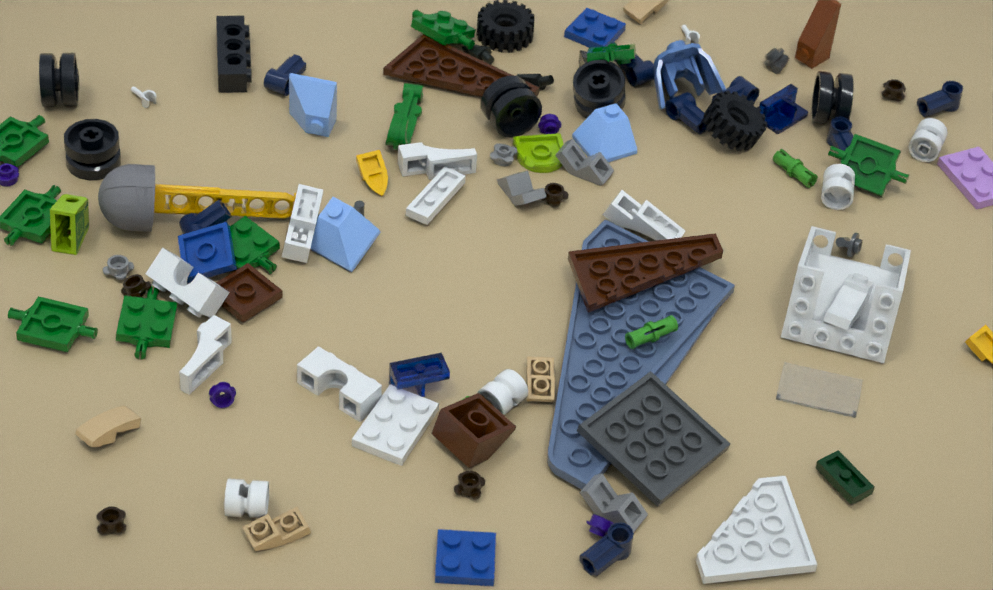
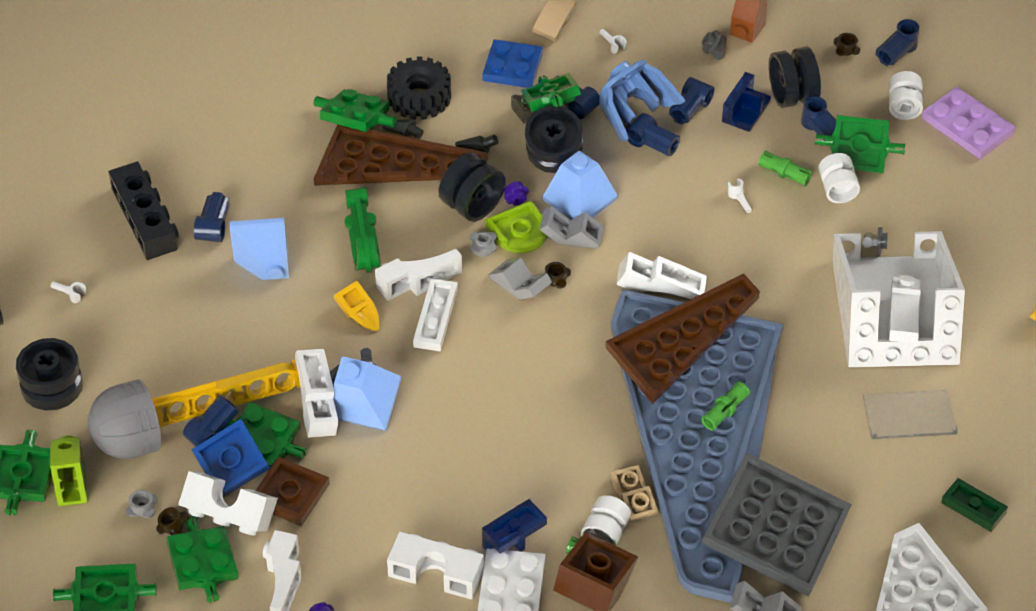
camera: 15 degrees left, 5 degrees up
(735, 120) = (706, 133): black tyre -> none
(744, 176) = (737, 192): none -> white hand

